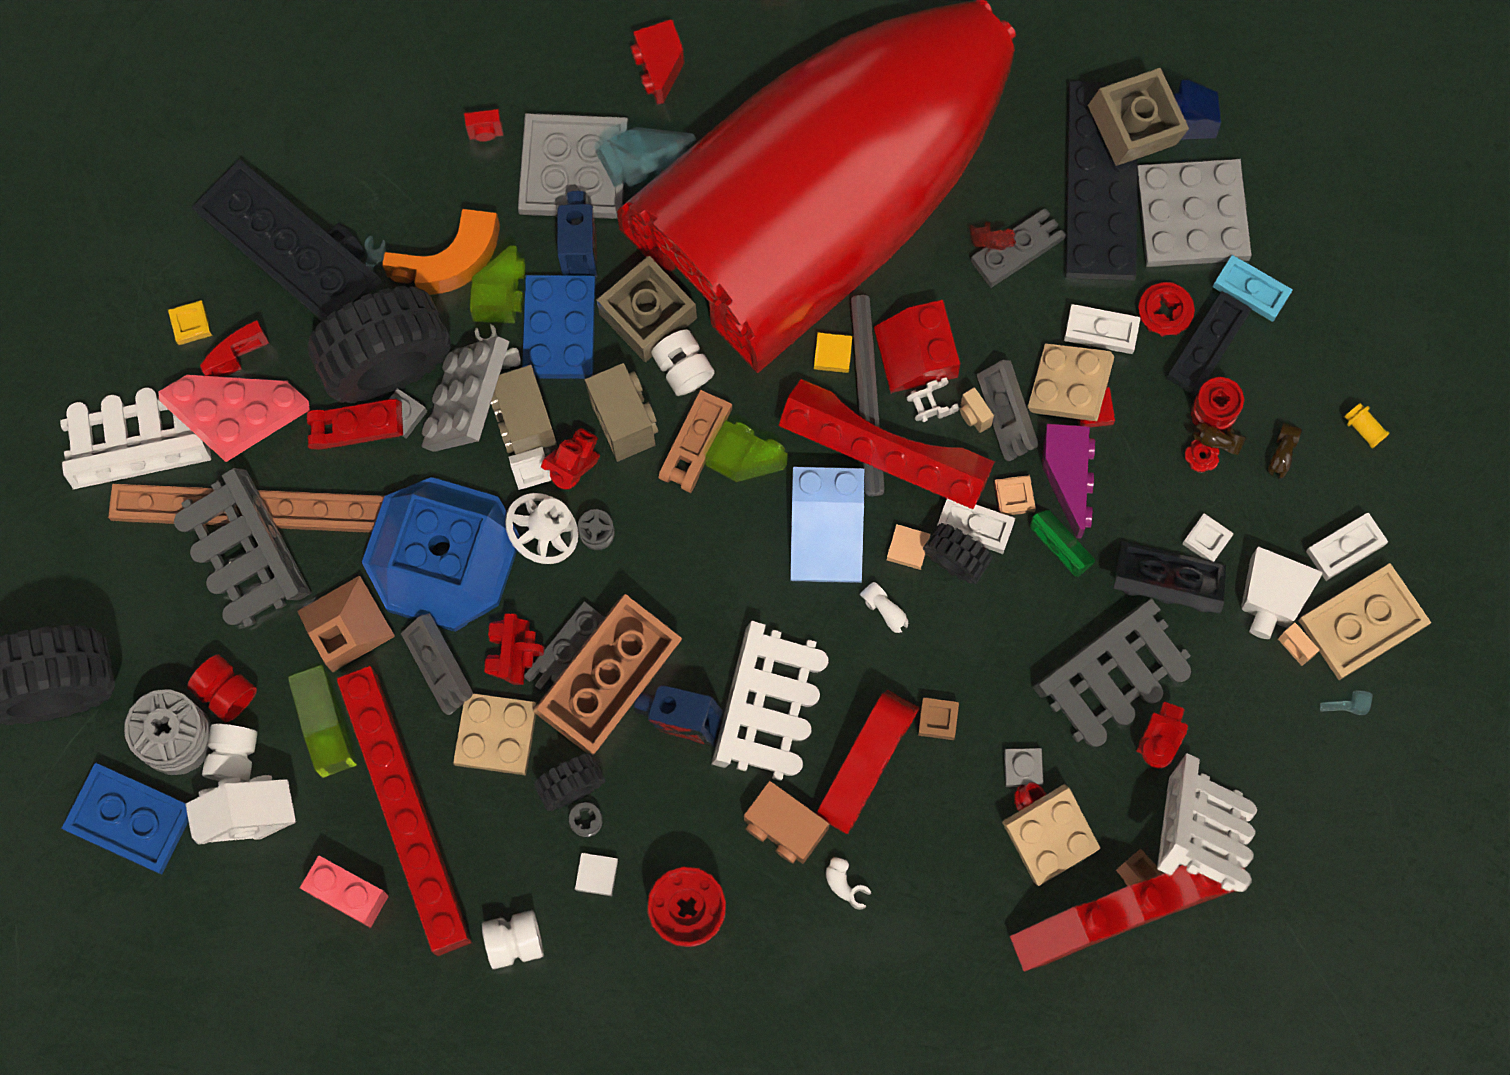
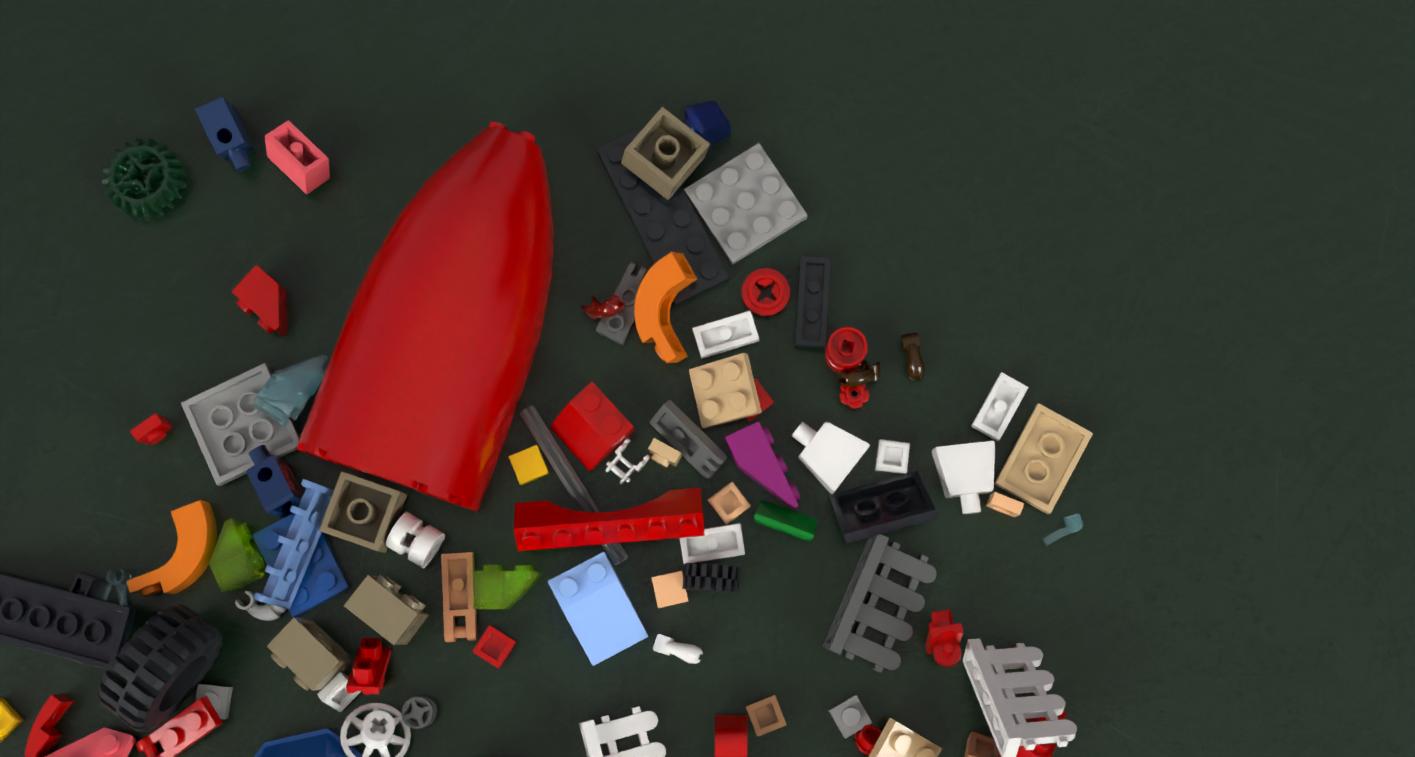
camera: 30 degrees left, 5 degrees up
(464, 394) = (253, 666): light grey plate -> none
(567, 305) = (296, 547): none -> medium blue hinge
(703, 507) = (494, 646): none -> red plate
(1047, 256) = (654, 302): none -> orange arch
(1145, 499) = (829, 453): none -> white torso
(1252, 288) = (822, 240): medium azure plate -> none
(1366, 425) = (963, 302): yellow pin -> none

